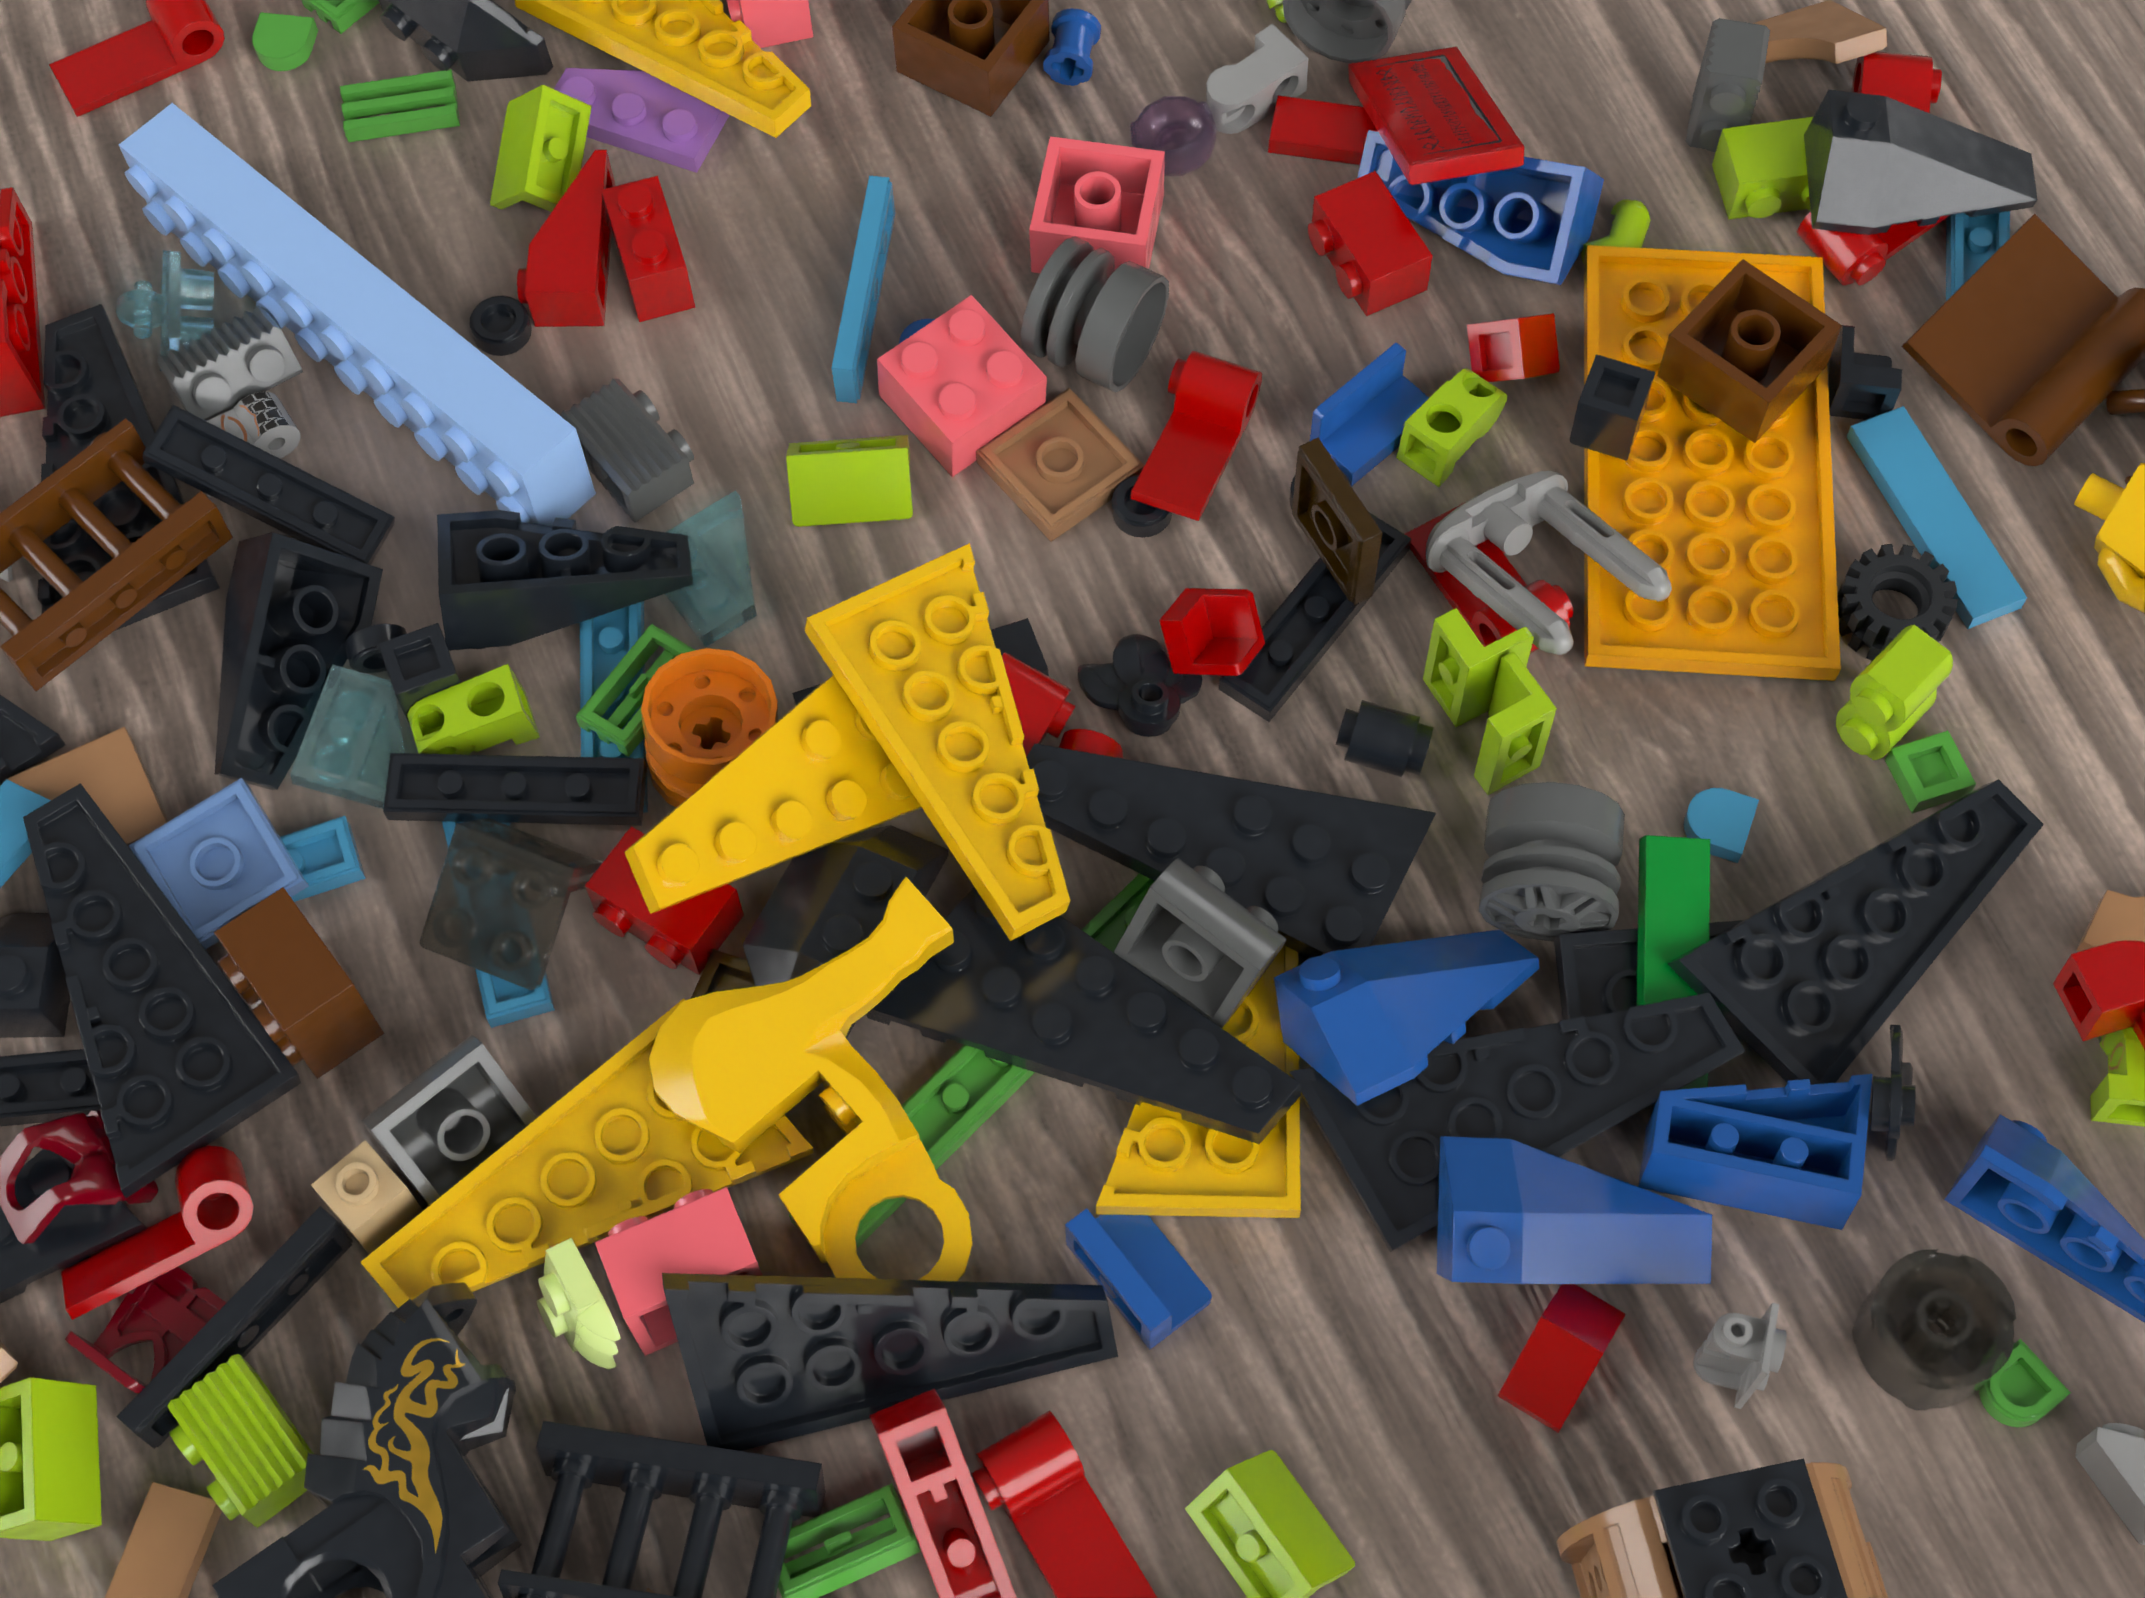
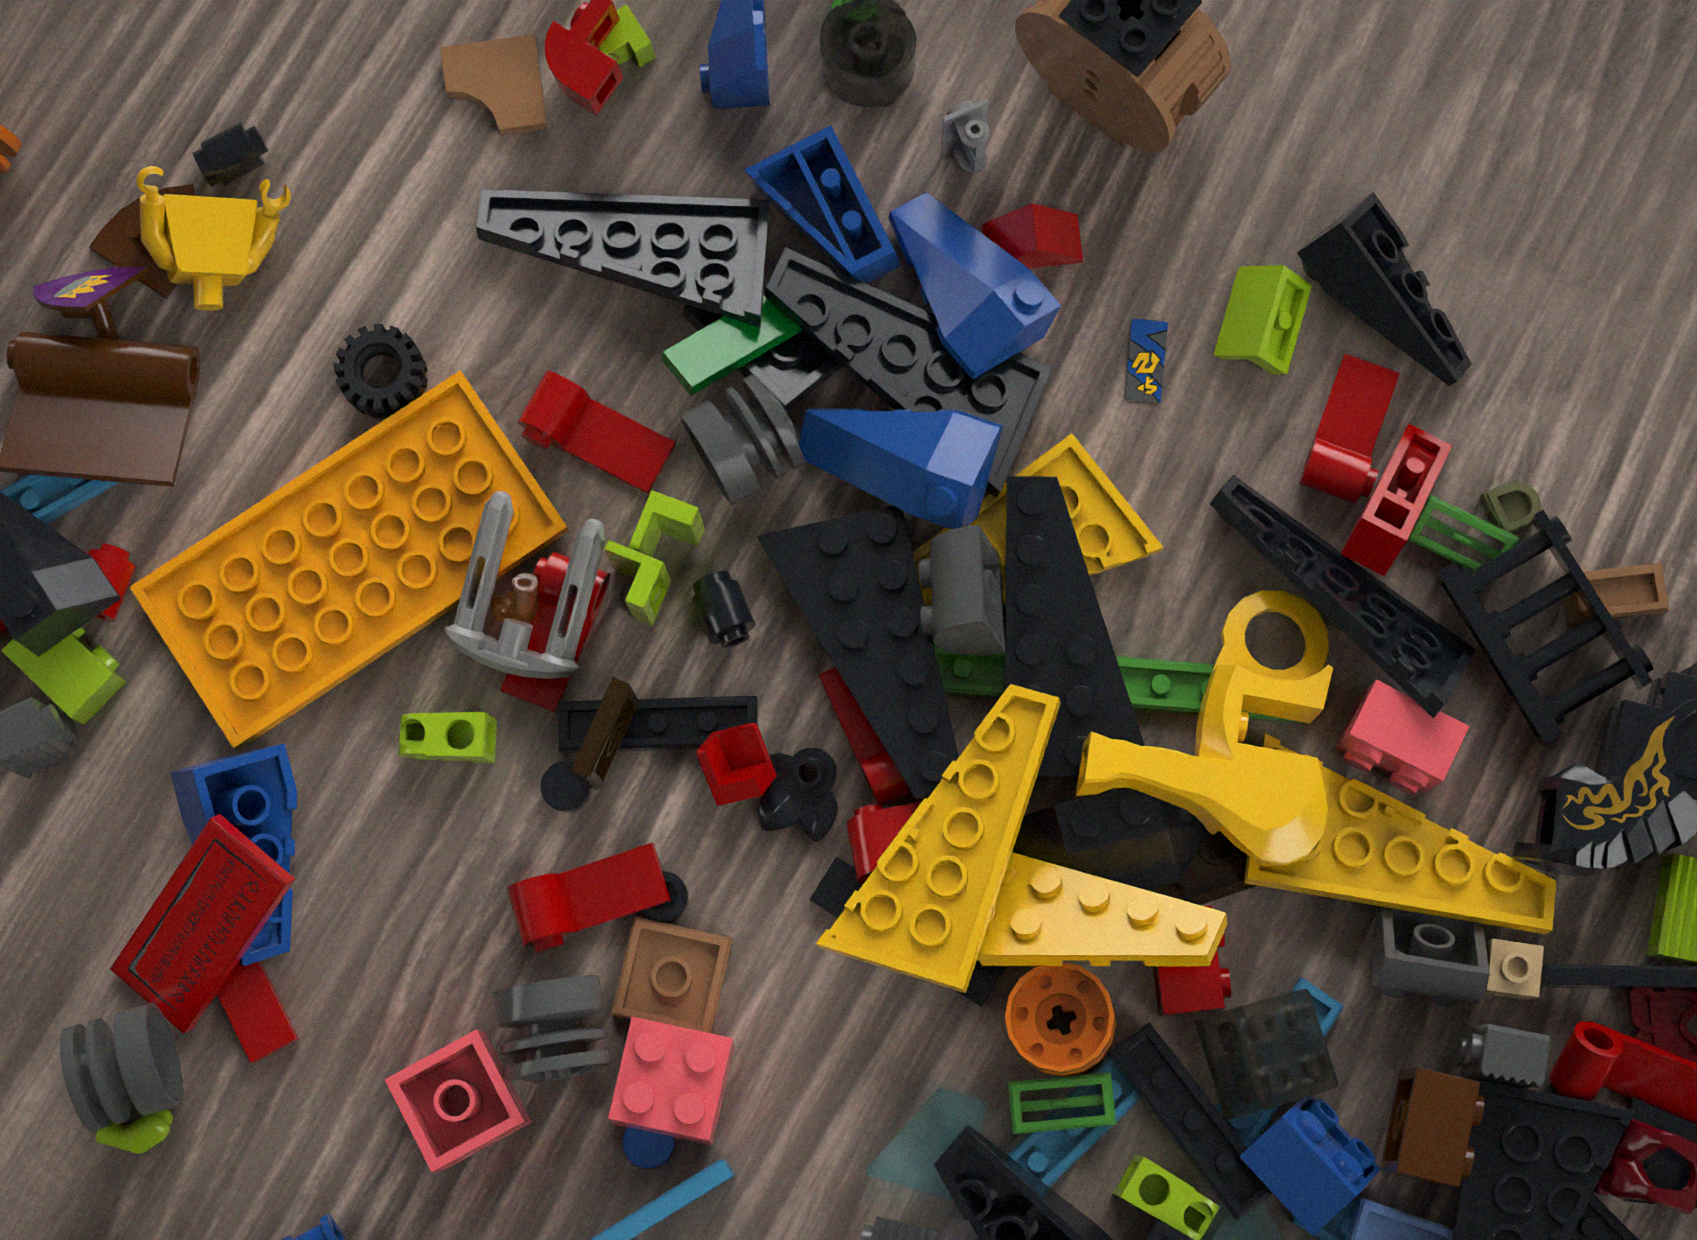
camera: 125 degrees left, 15 degrees up
(294, 1106) = (1503, 1056): none -> dark grey brick
(372, 854) = (1311, 1163): none -> blue slope
(576, 1306) = (1471, 785): yellowish green plate -> none
(849, 480) = (793, 1107): lime panel -> none
(1138, 1272) = (1177, 499): blue panel -> none
(1180, 129) = (345, 1106): clear purple hair -> none
(1249, 90) = (269, 1088): light grey leg -> none
(1326, 1373) = (1146, 360): none -> sticker
(1367, 415) = (484, 792): blue panel -> none
(1369, 244) = (339, 898): red brick -> none
(1514, 348) = (355, 740): red panel -> none
(1542, 562) = (518, 603): none -> clear orange arm
(1611, 407) = (374, 624): black panel -> none
(1627, 228) = (197, 734): lime arm -> none
(1710, 744) = (572, 421): none -> red door
(1722, 818) = (620, 376): dark azure tile -> none
(1748, 350) = (265, 566): reddish brown brick -> none
(1860, 382) = (210, 502): black panel -> none
(1893, 692) = (464, 320): lime brick -> none
(1893, 1096) = (753, 148): black plate -> none
(1930, 771) = (488, 279): bright green tile -> none
(1936, 515) = (287, 393): dark azure tile -> none

